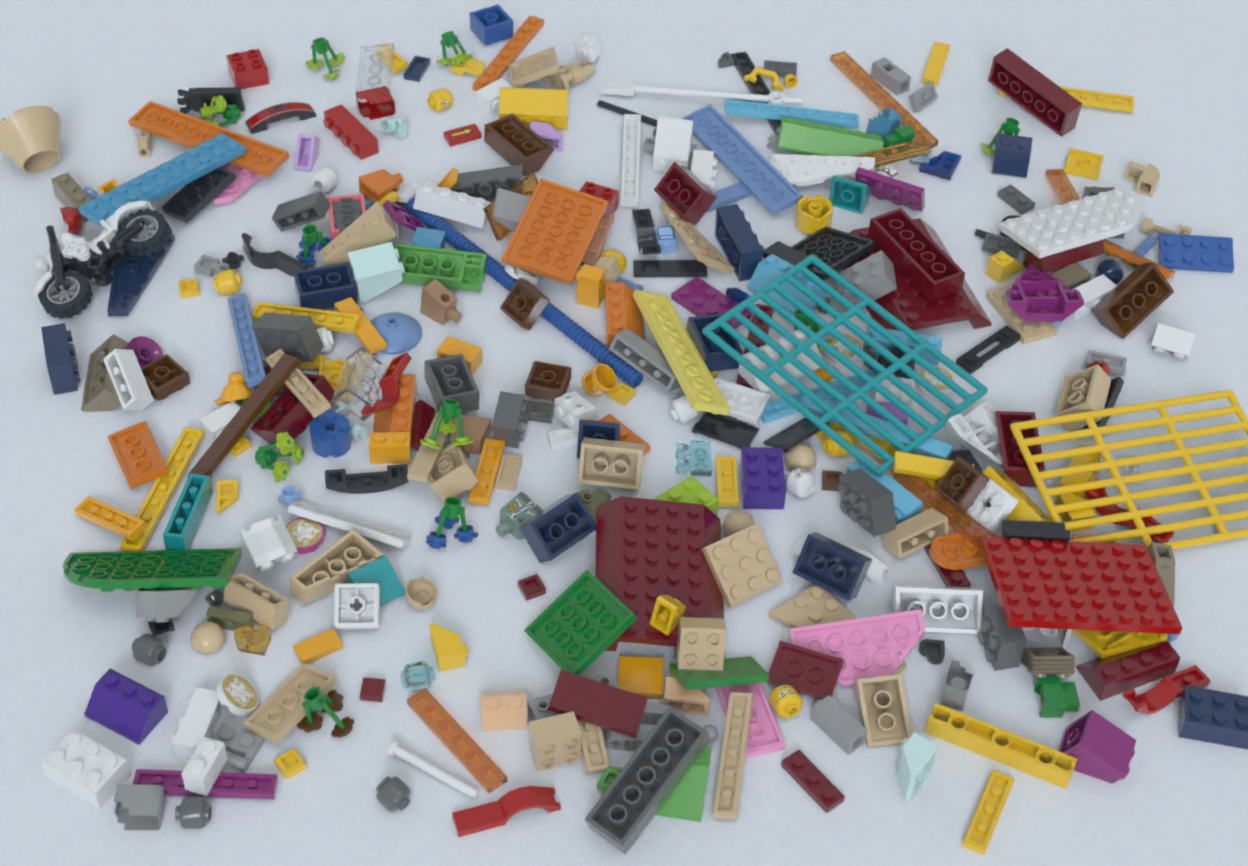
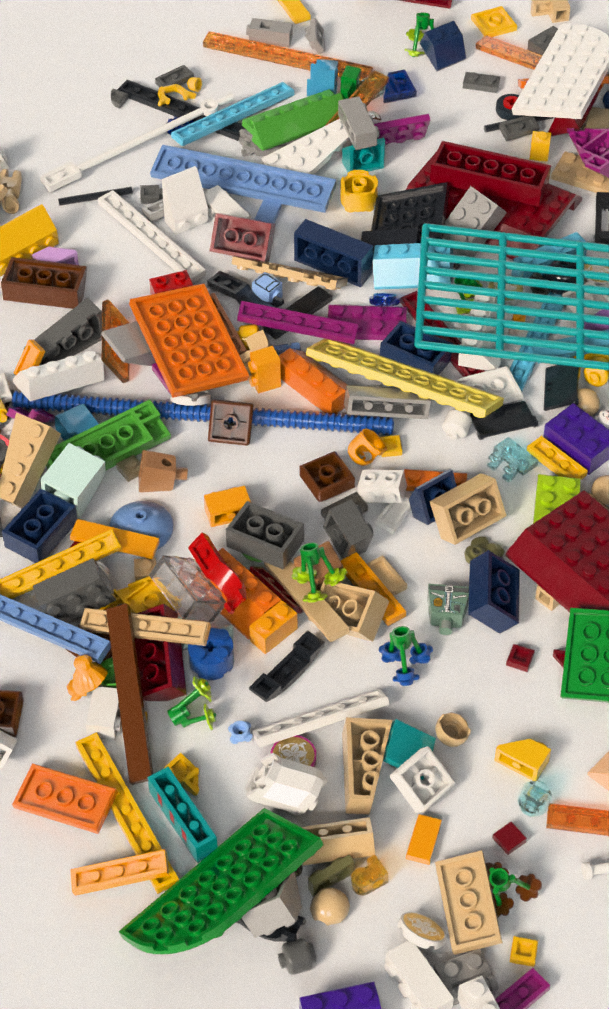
camera: 40 degrees left, 5 degrees up
(652, 271) = (297, 322): none -> magenta plate
(855, 161) = (358, 123): none -> light grey brick

